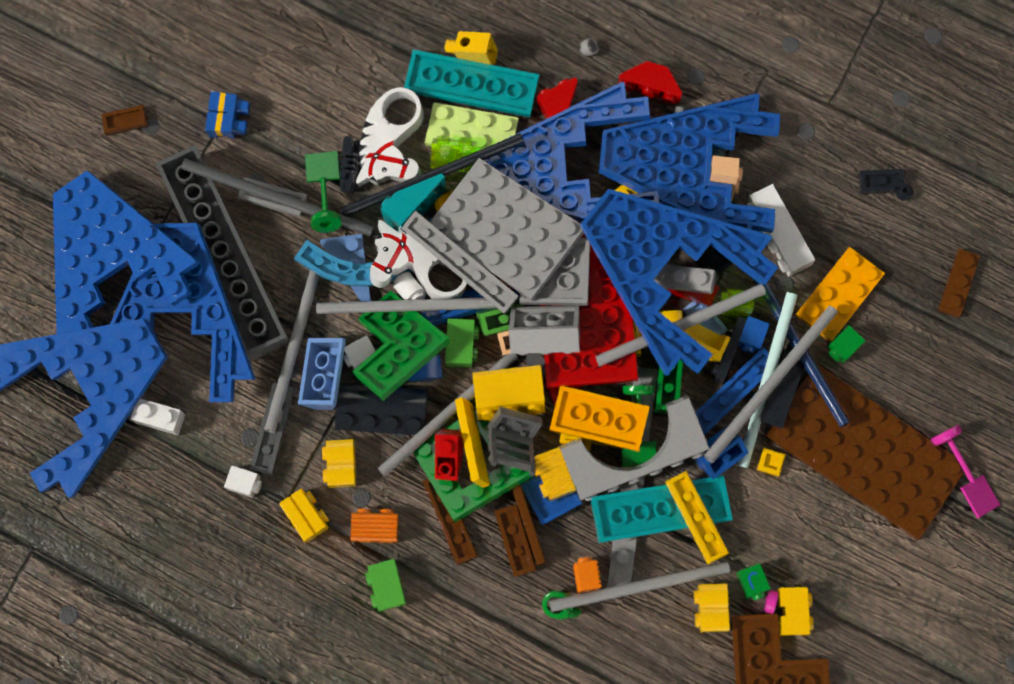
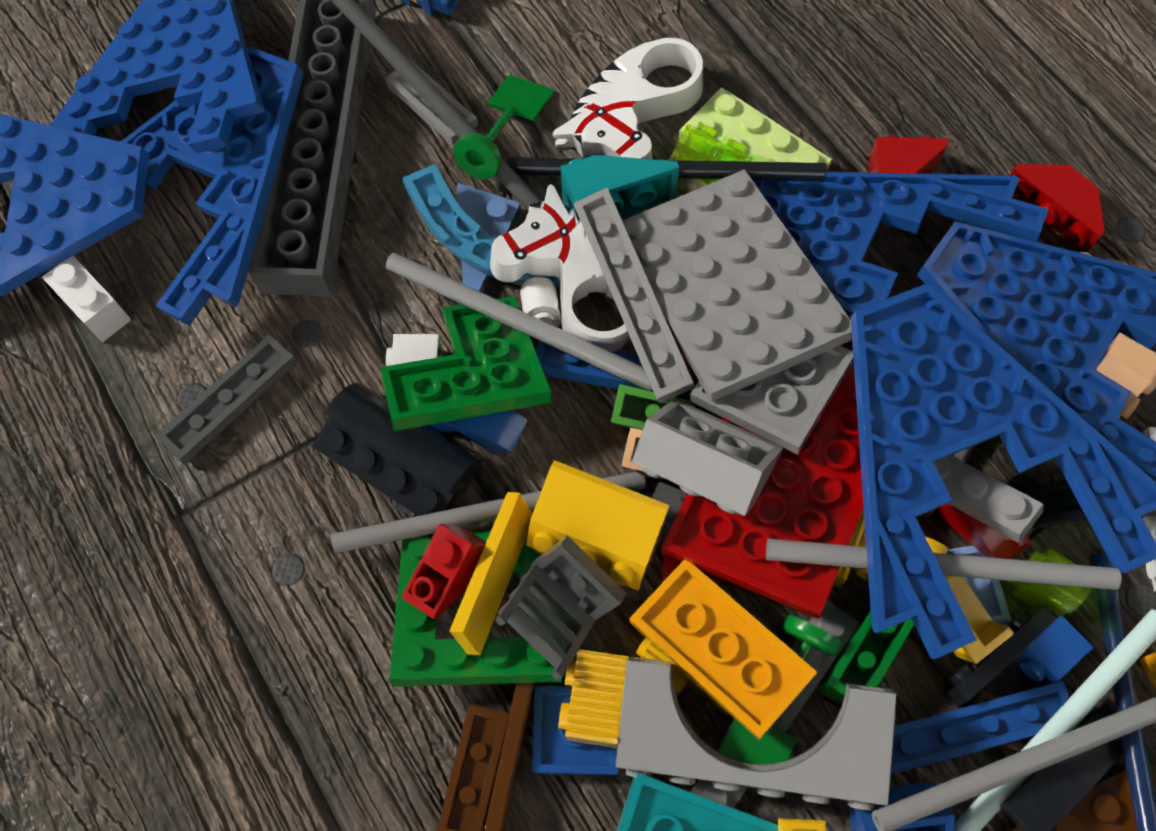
camera: 30 degrees right, 10 degrees down
(243, 482) = (134, 449): white brick -> none
(292, 351) = (316, 310): light grey piece -> none
(304, 515) = (185, 547): yellow brick -> none
(321, 373) = (340, 352): medium blue slope -> none
(340, 463) = (286, 500): yellow brick -> none
(349, 165) = (556, 110): black hinge -> none
(374, 527) = (272, 623): orange brick -> none
(386, 585) = (230, 728): bright green brick -> none
(455, 533) = (389, 706): reddish brown tile -> none
(461, 349) = (570, 419): bright green brick -> none
(471, 83) = (792, 89): teal plate -> none
(473, 47) = (818, 43): yellow torso -> none
(589, 47) = (986, 117): light grey hinge -> none

